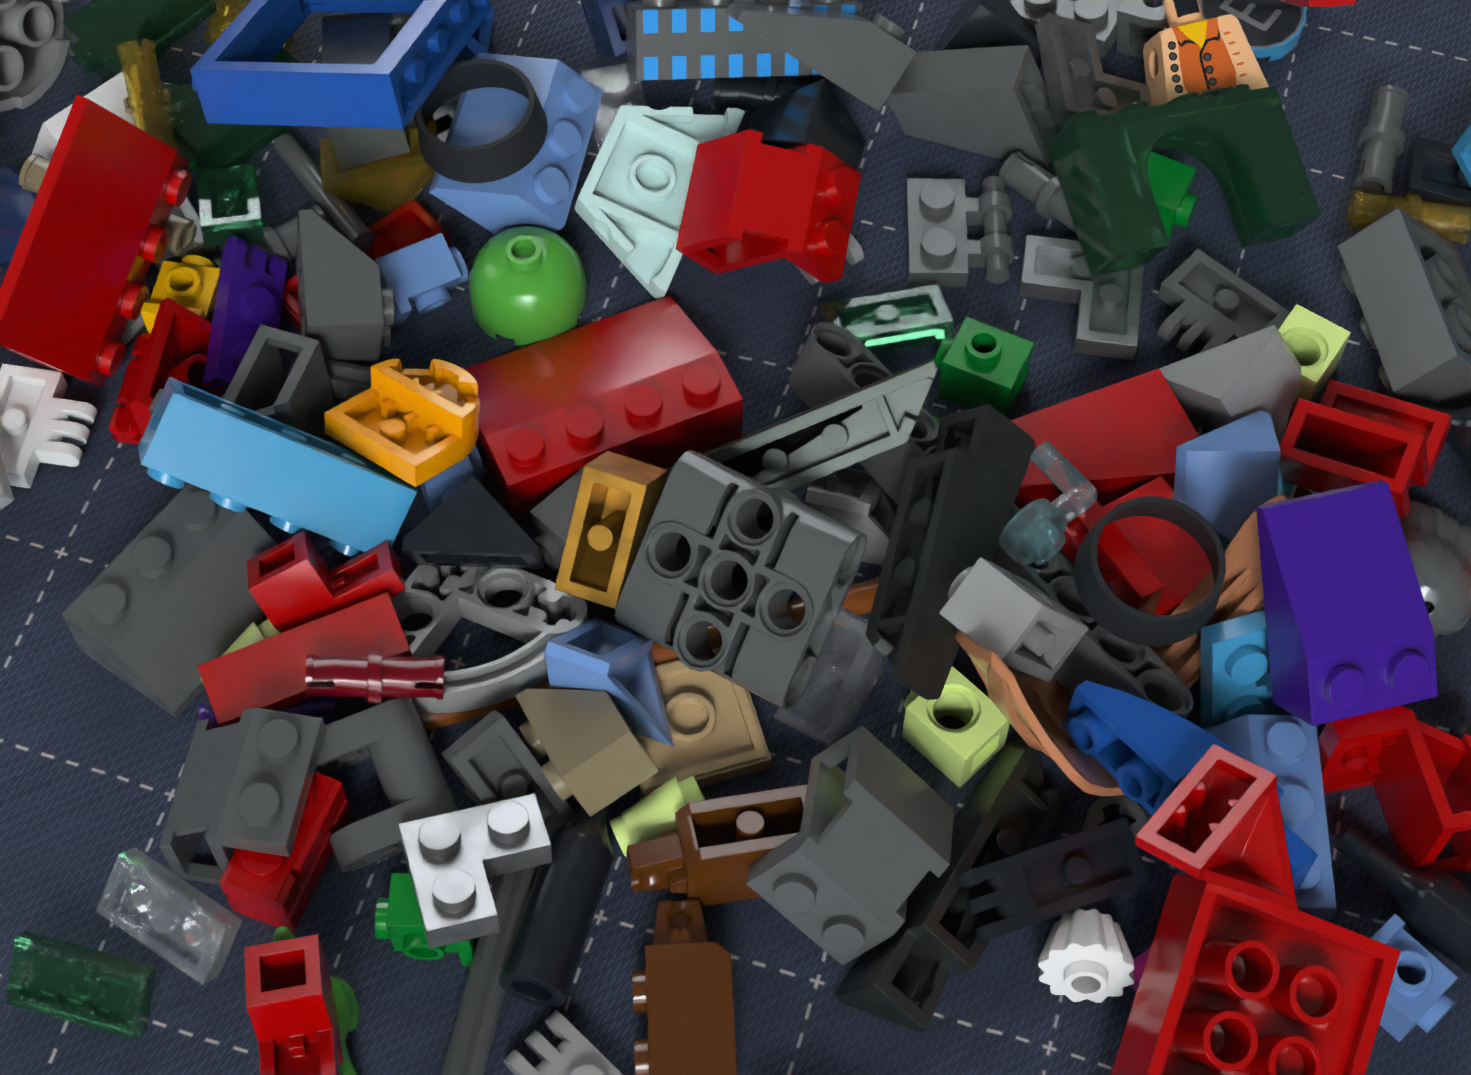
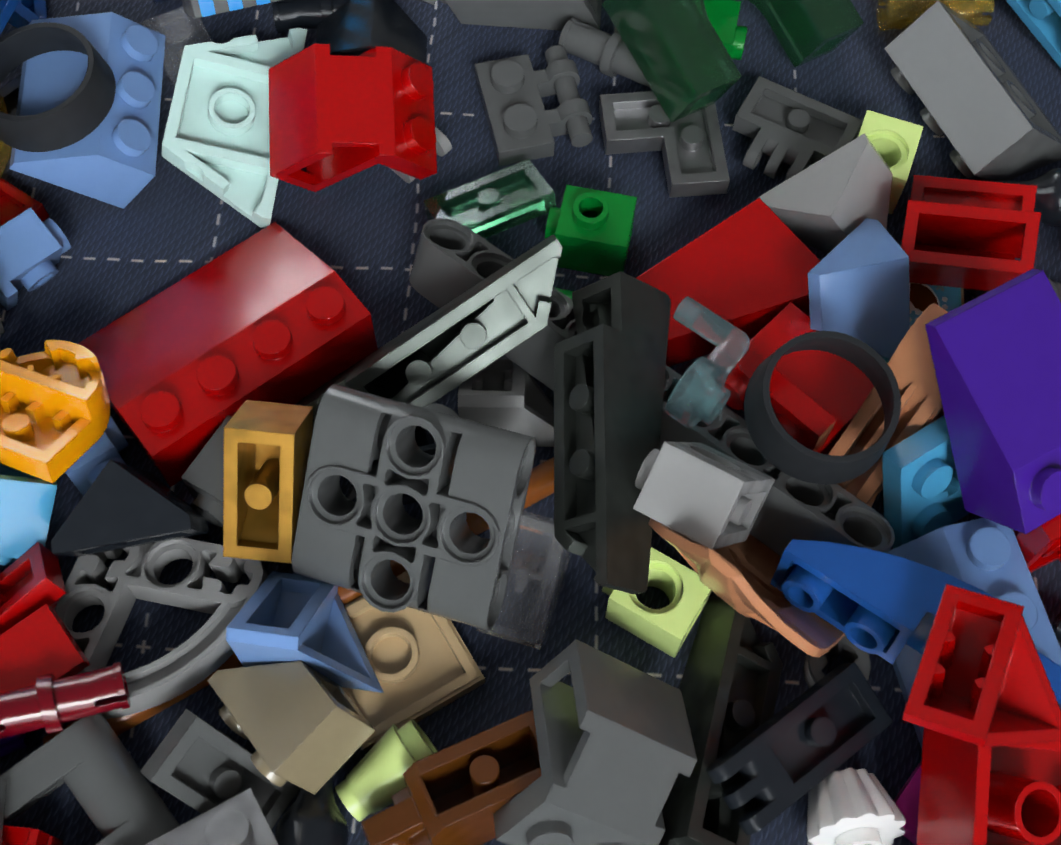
camera: 15 degrees left, 5 degrees up
(527, 285) = (132, 241): bright green cylinder -> none

